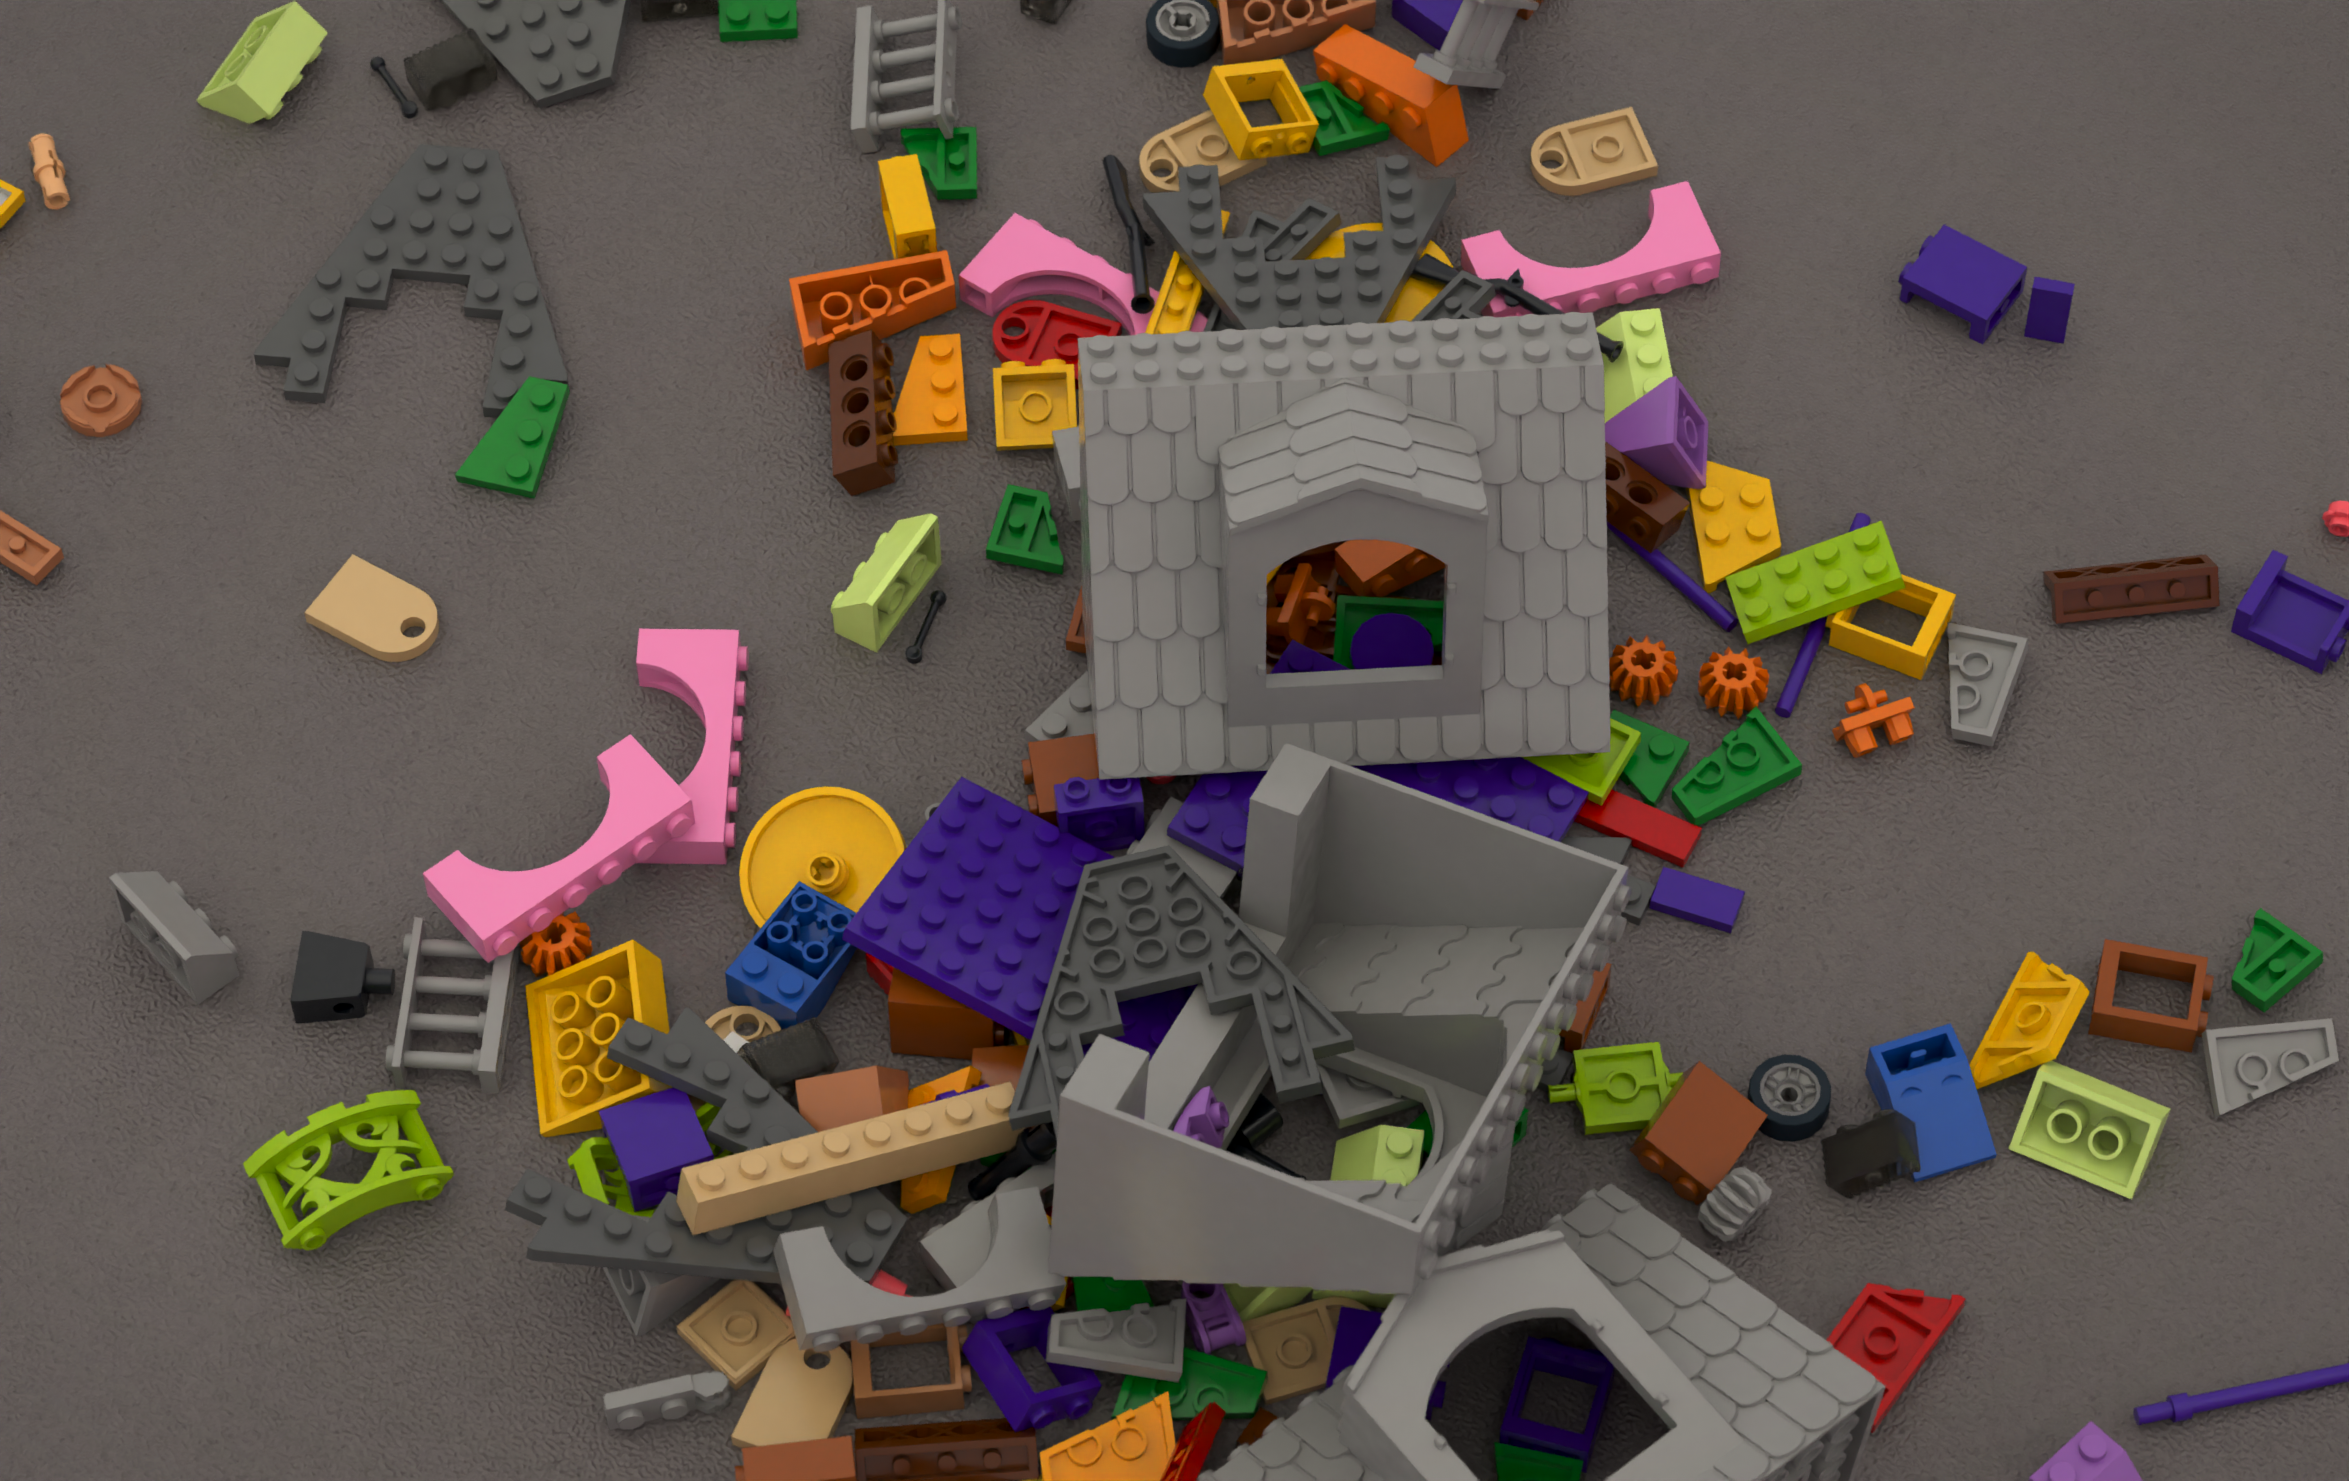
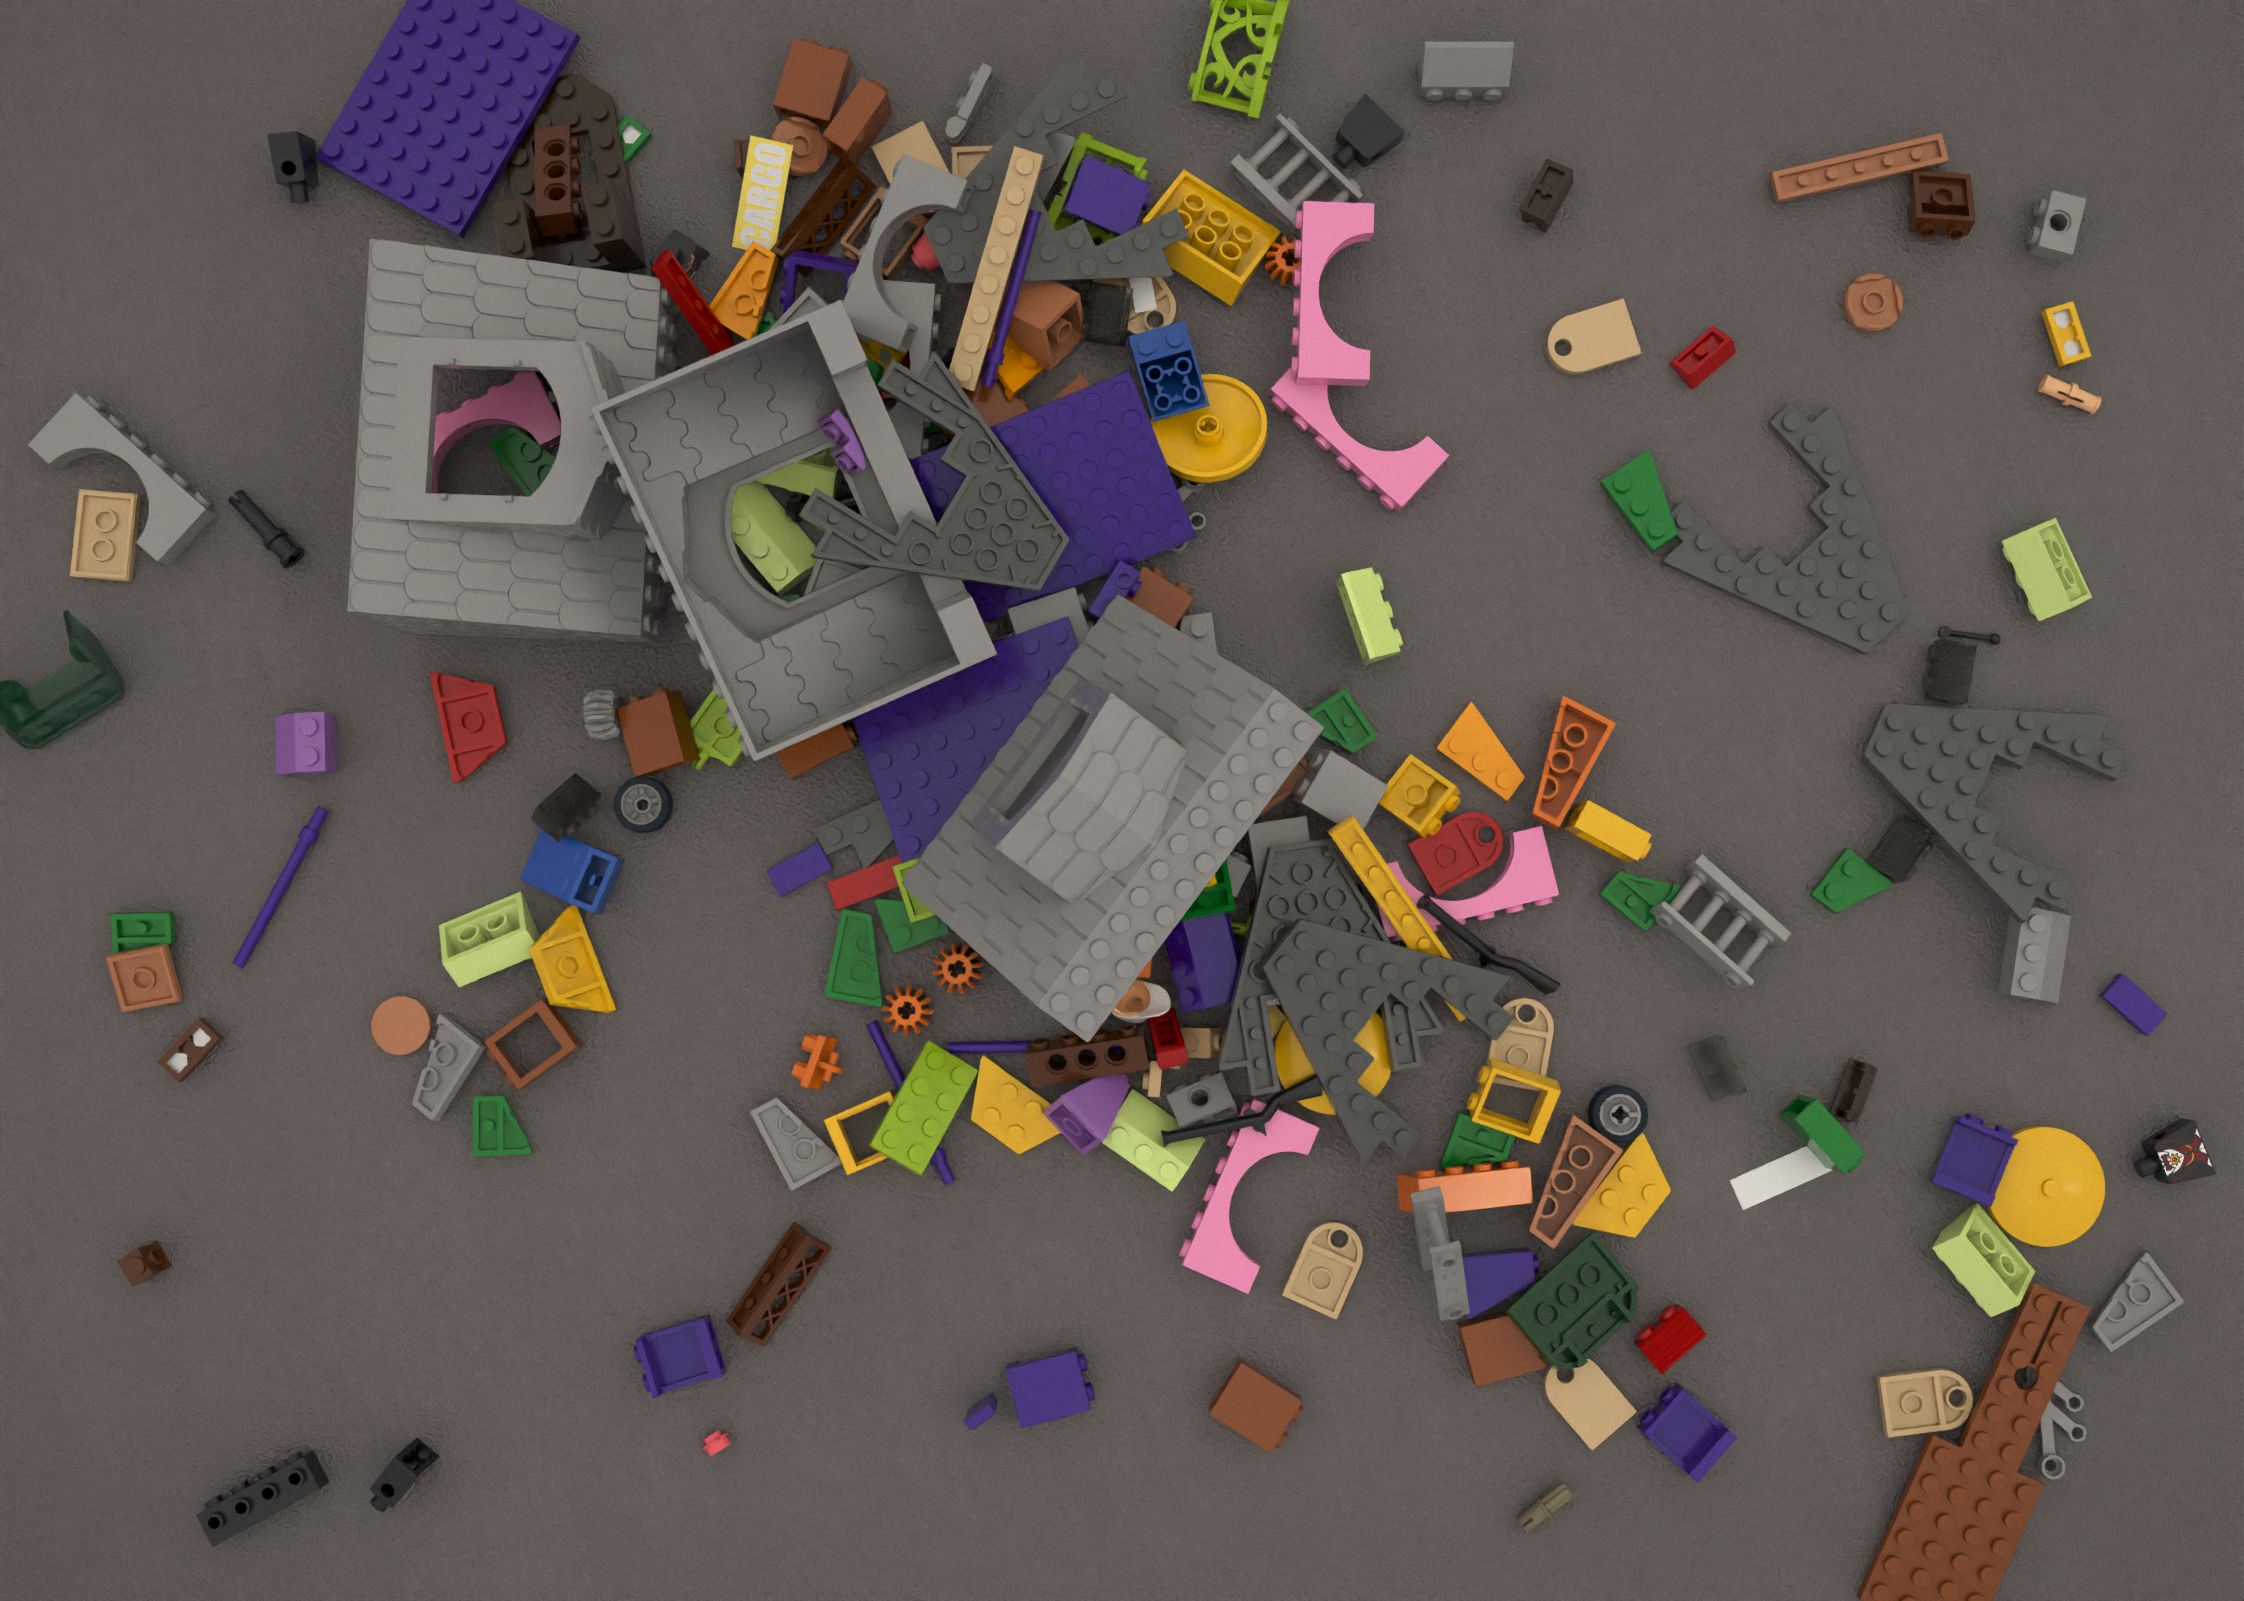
camera: 130 degrees right, 30 degrees up
(249, 754) = (1546, 194): none -> dark brown hinge
(302, 504) = (1703, 356): none -> red slope
(862, 412) = (1510, 697): reddish brown brick -> none
(914, 652) = (1316, 600): black hinge -> none
(1786, 109) = (1256, 1406): none -> dark orange brick
(2272, 1144) = (401, 1025): none -> nougat tile

